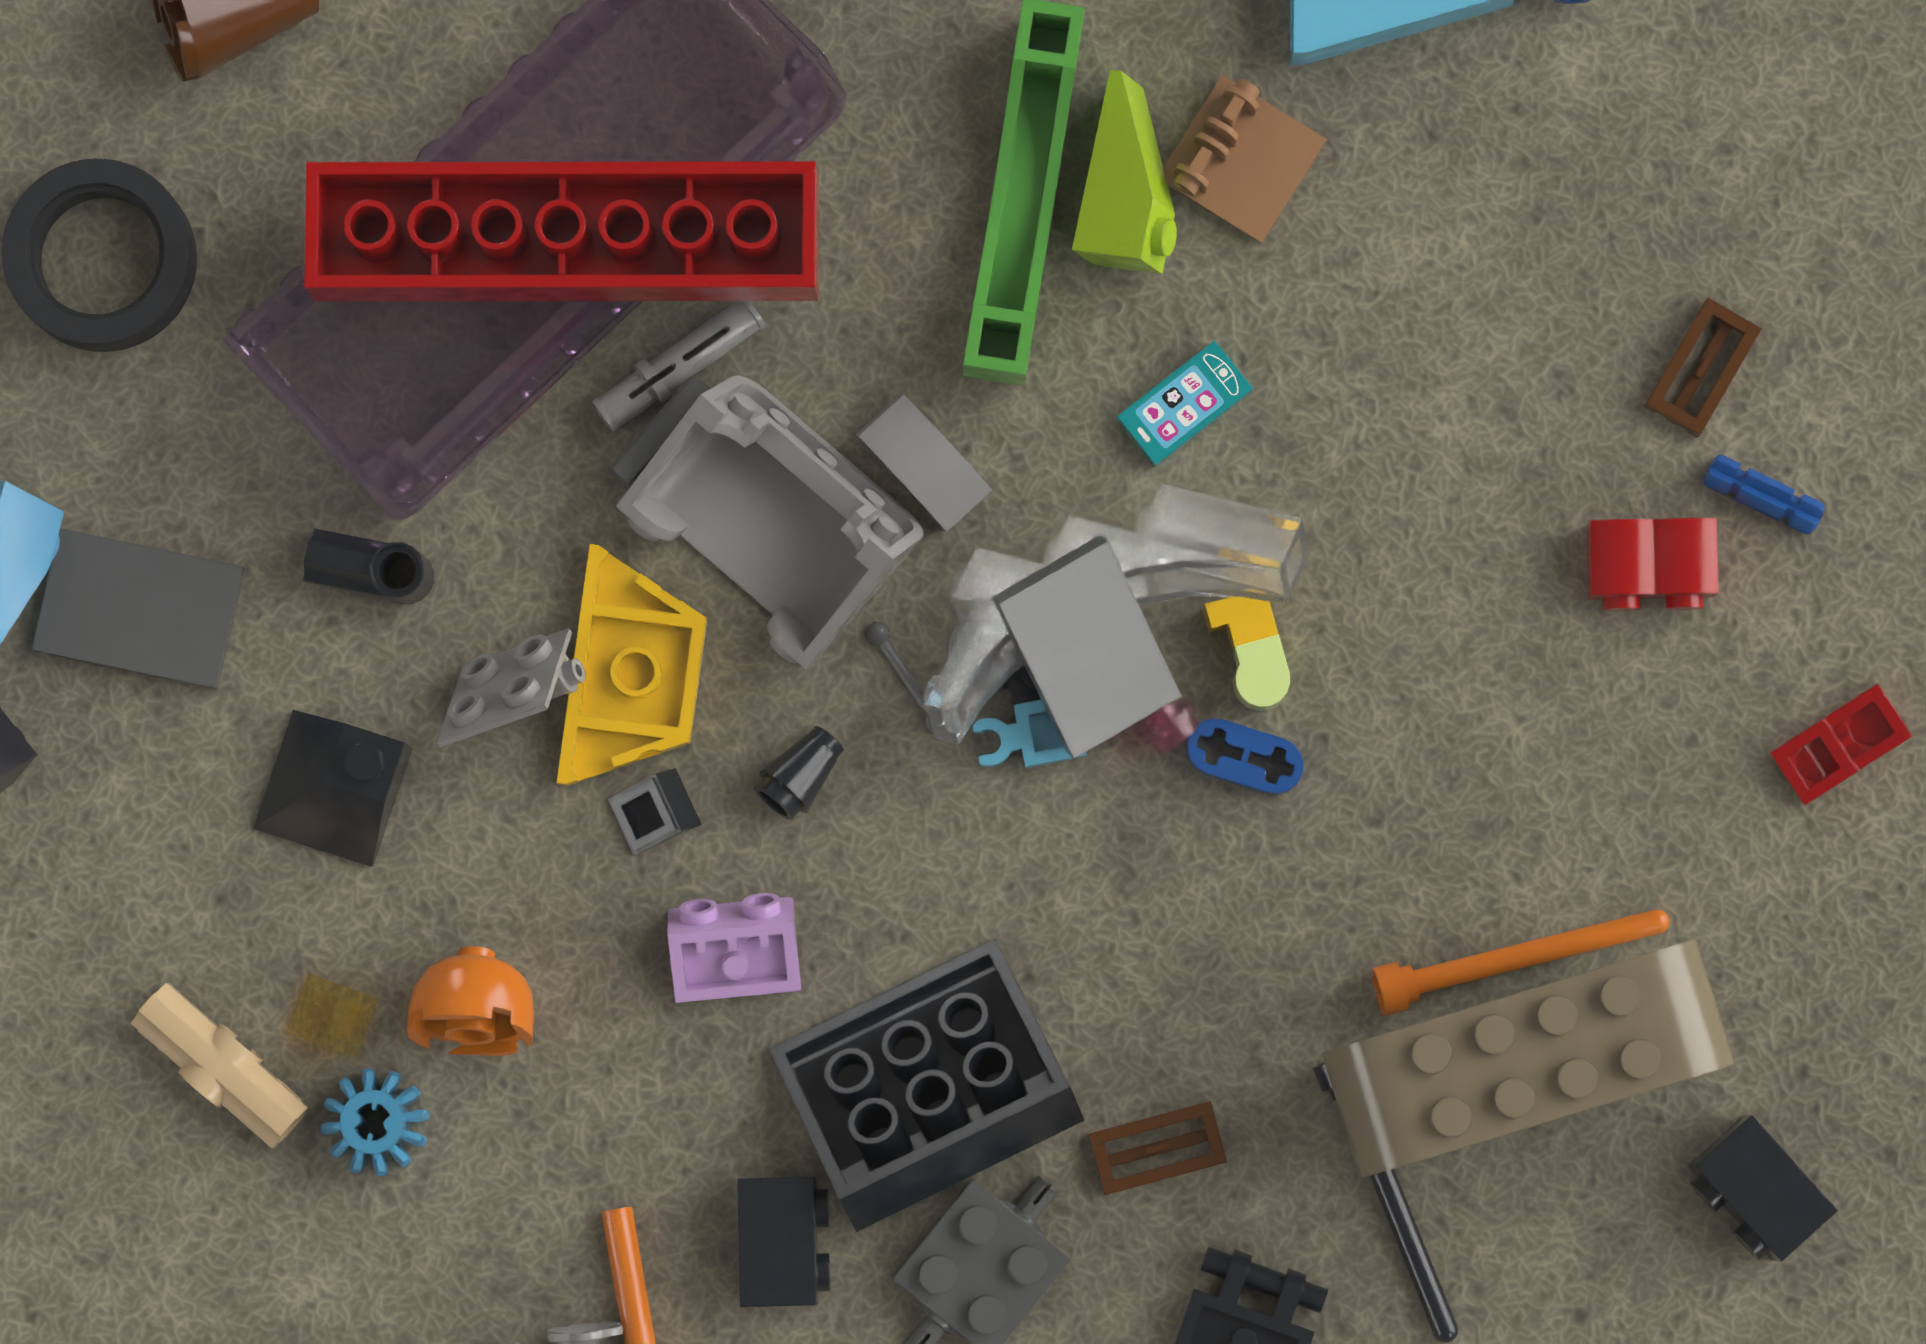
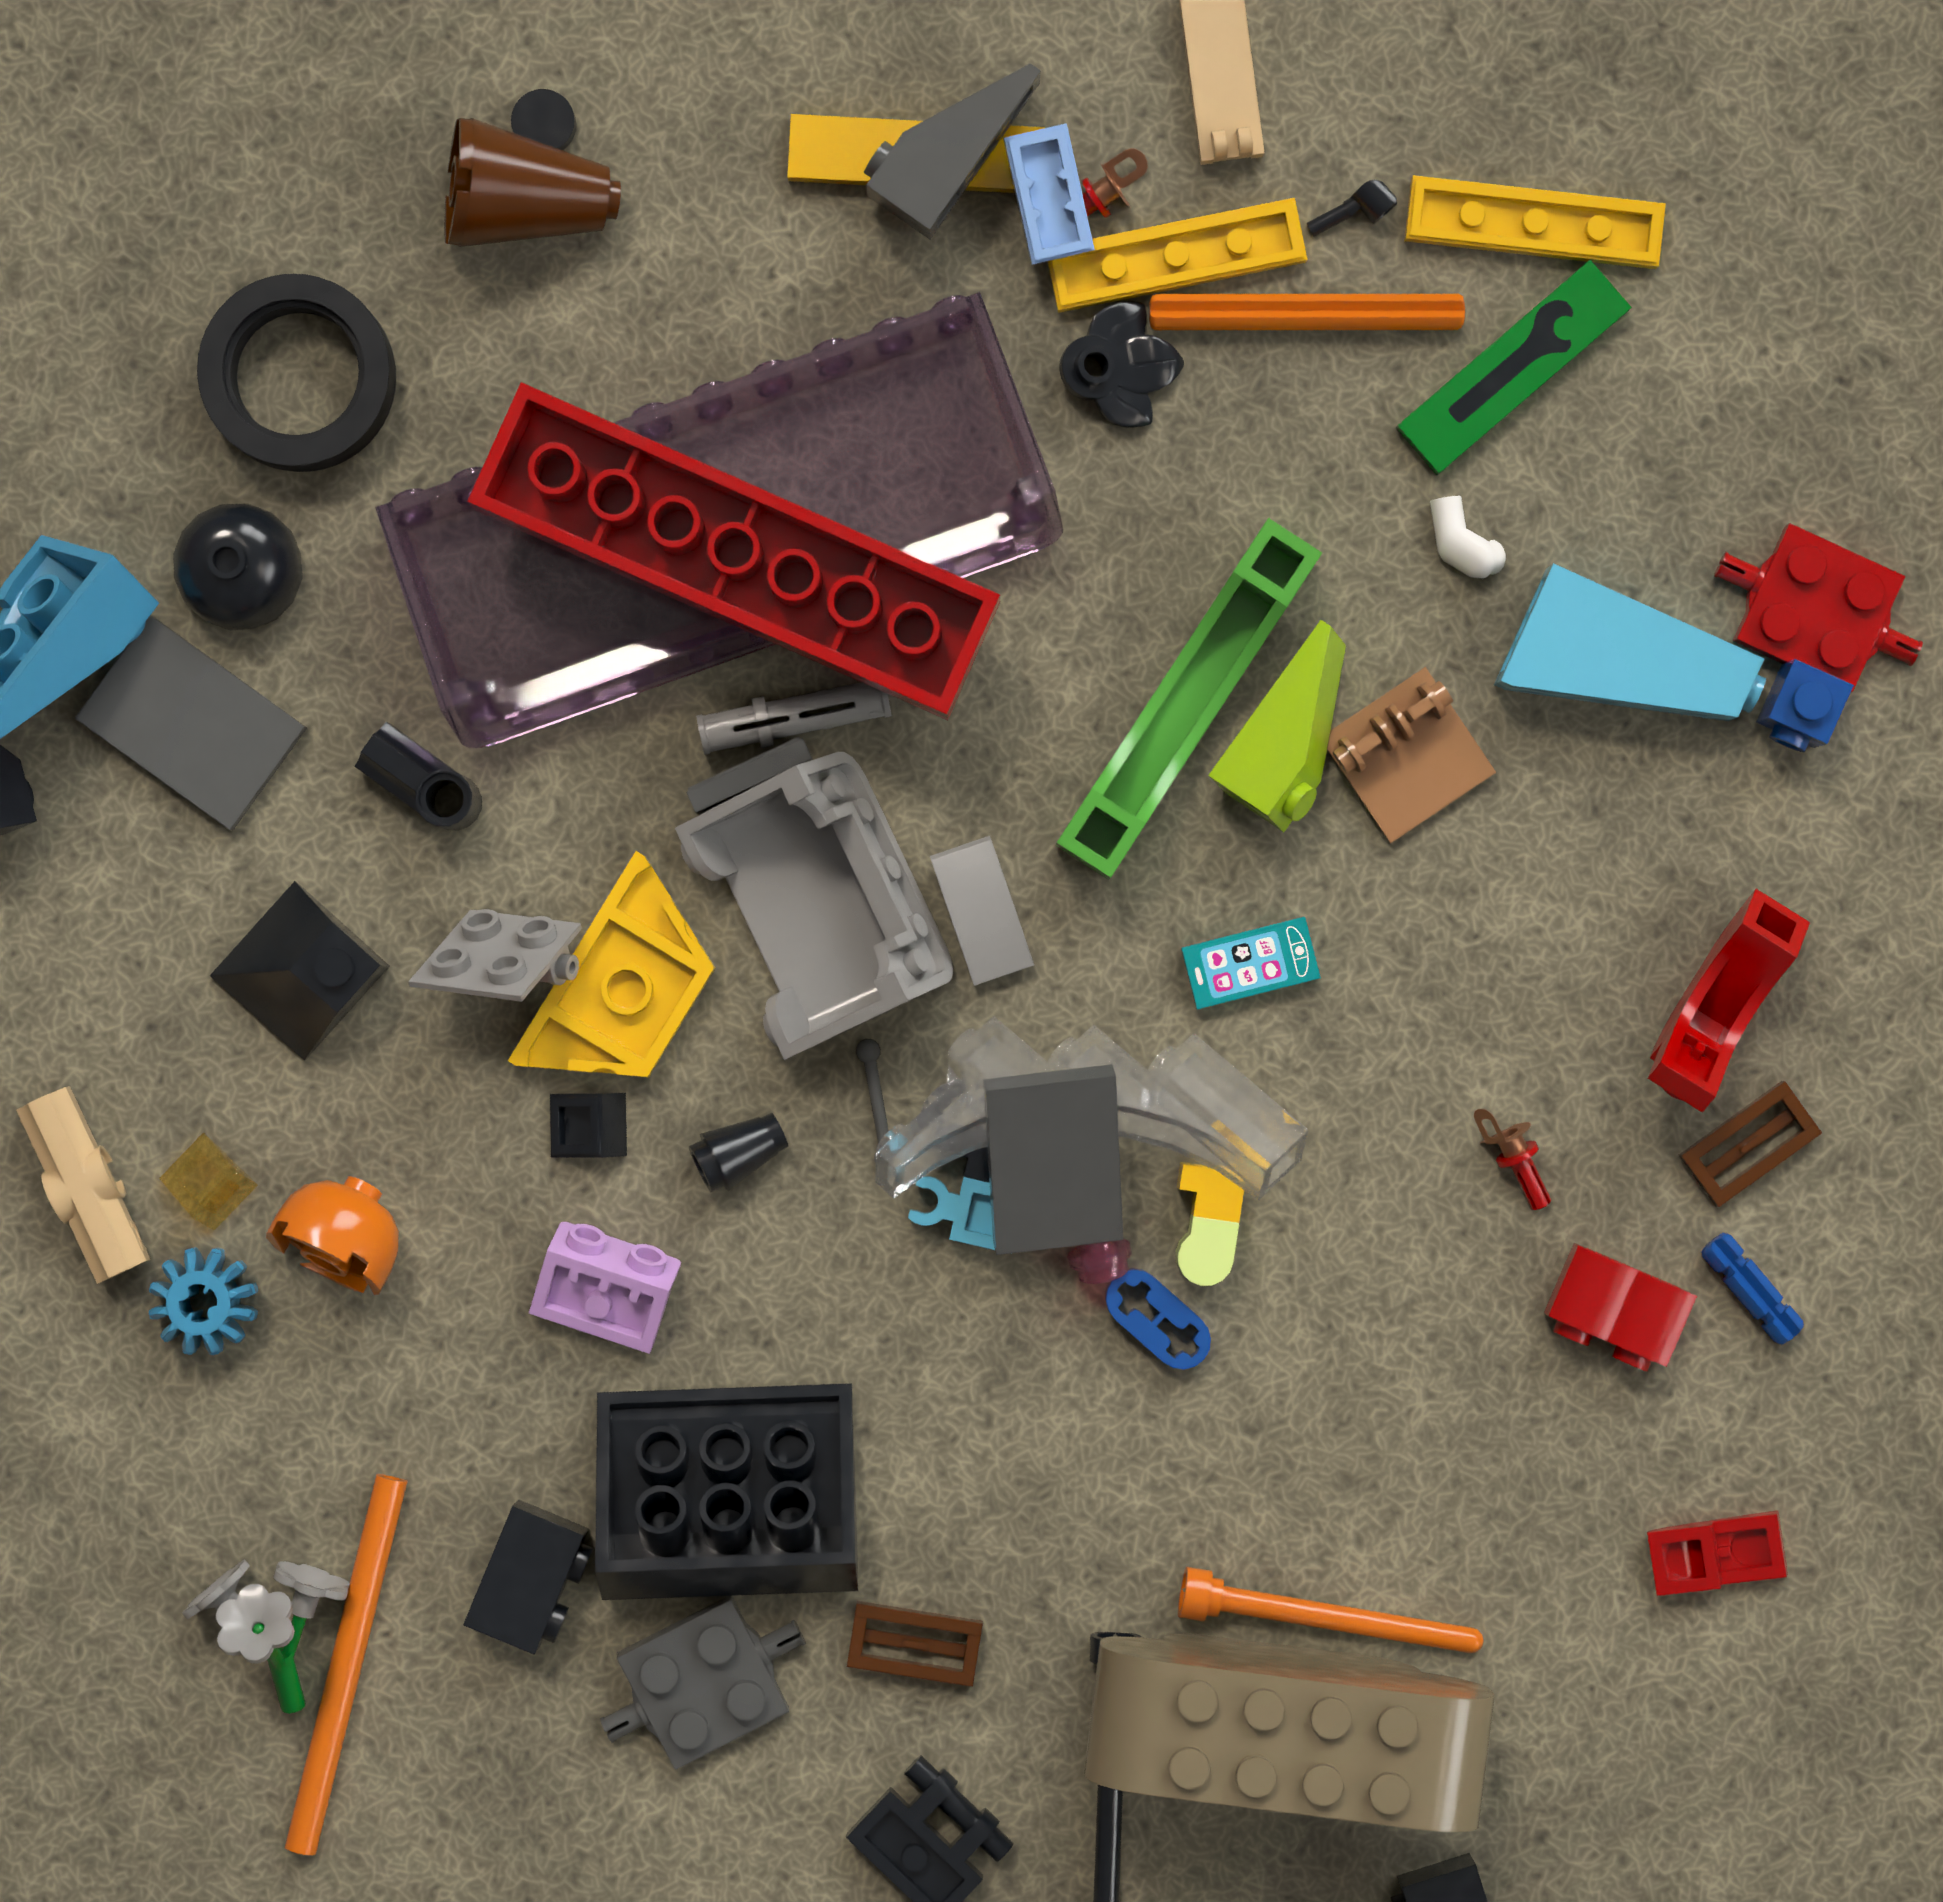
camera: 20 degrees right, 5 degrees up
(120, 451) = (237, 566): none -> black cylinder
(1500, 468) = (1517, 1155): none -> piece
(1620, 243) = (1724, 997): none -> red arch

